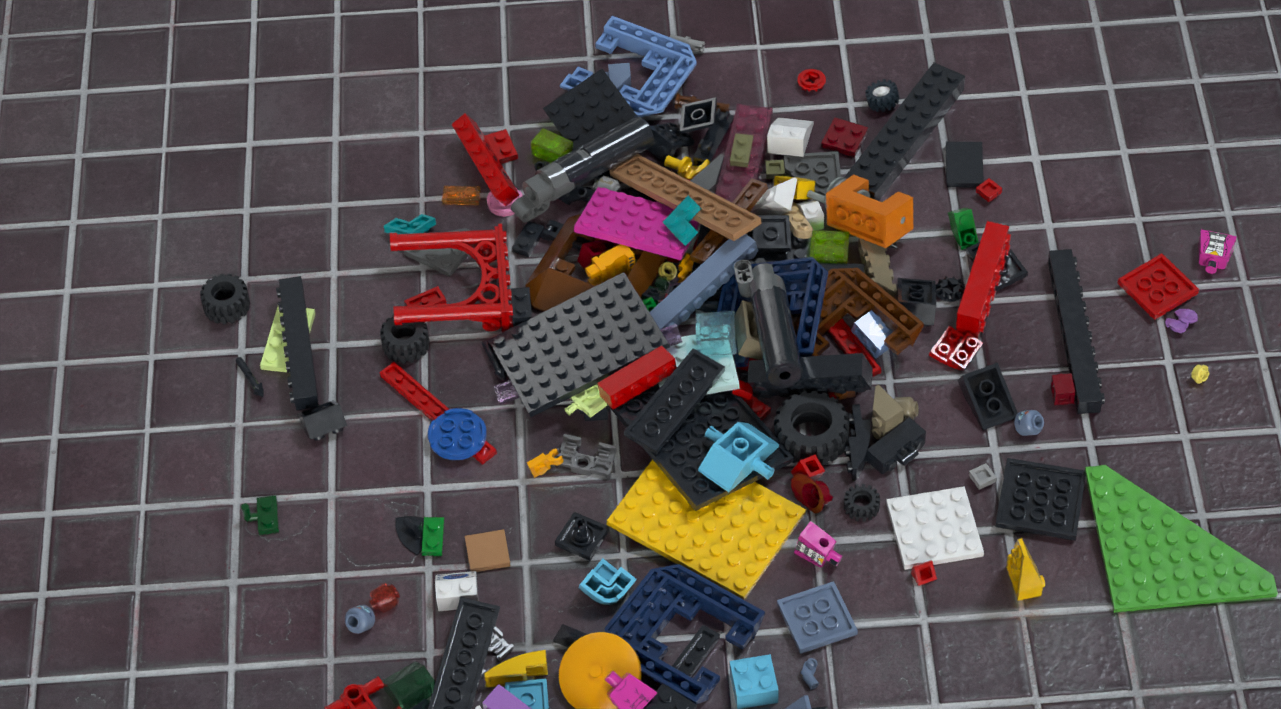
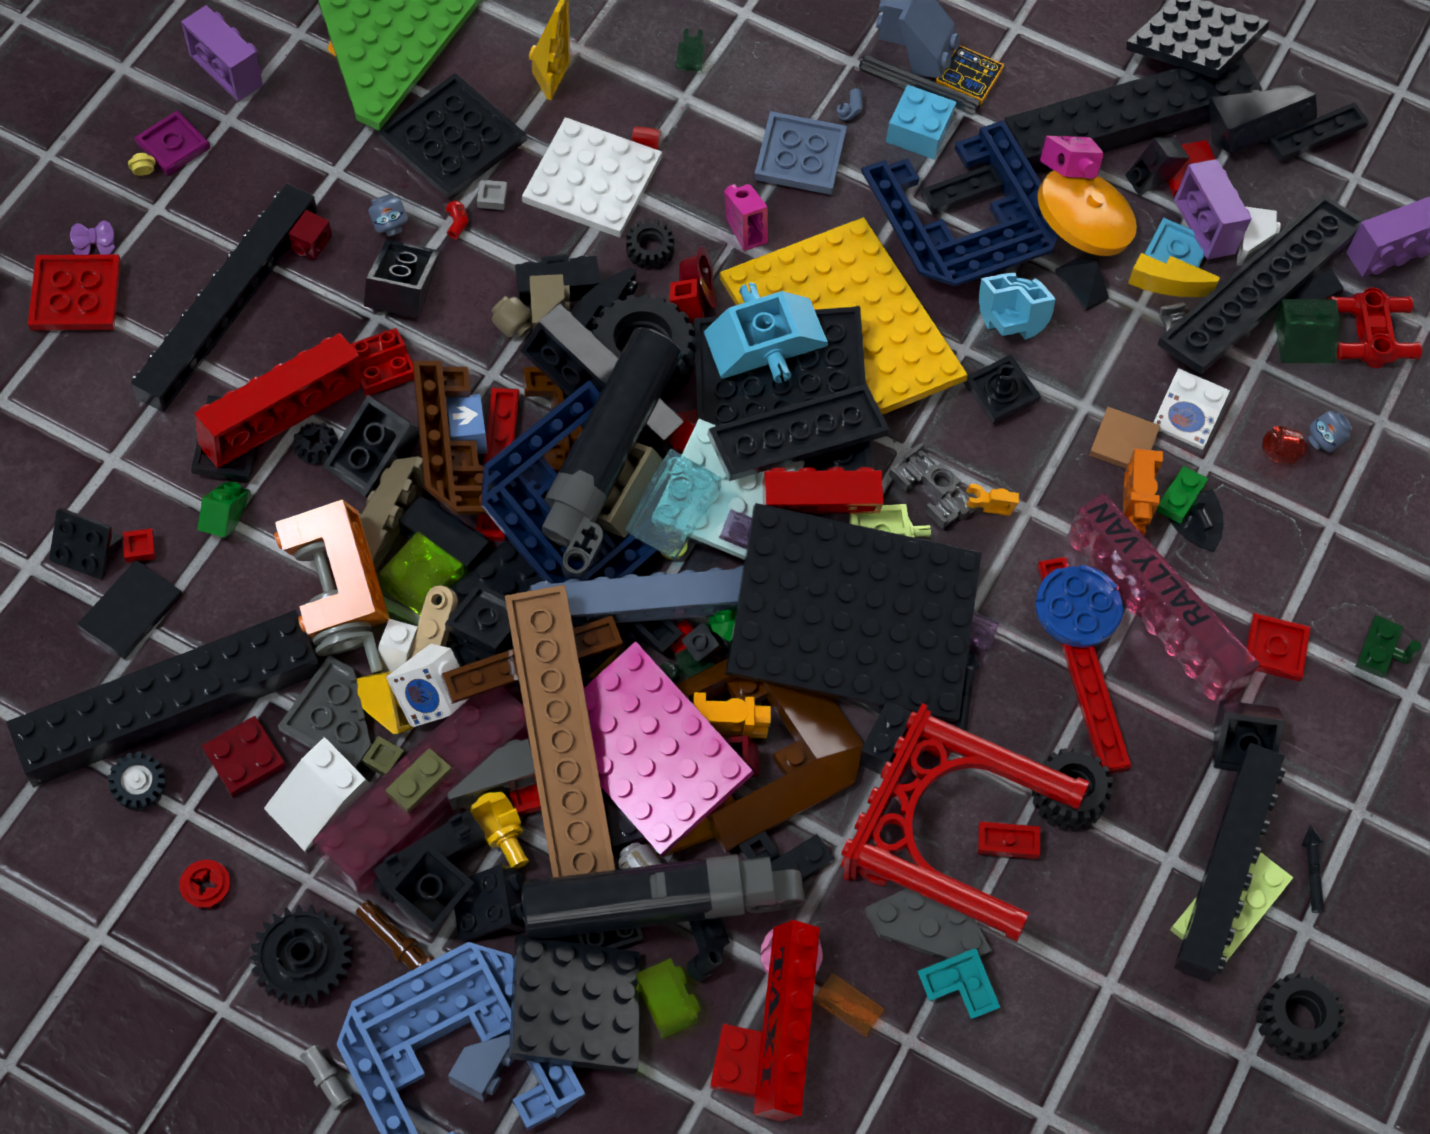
camera: 155 degrees left, 10 degrees up
(329, 482) = (1278, 646): none -> red tile
(411, 455) = (1162, 599): none -> clear pink brick
(458, 510) = (1141, 487): none -> orange hips
(679, 220) = (606, 683): teal plate -> none
(739, 76) = (307, 977): none -> black gear
(944, 645) = (690, 52): none -> clear green plate
(989, 453) = (460, 219): none -> red arm
(1017, 176) = (82, 543): none -> black bracket
(1200, 401) = (172, 142): none -> magenta tile
(1222, 454) = (222, 52): none -> medium lavender brick

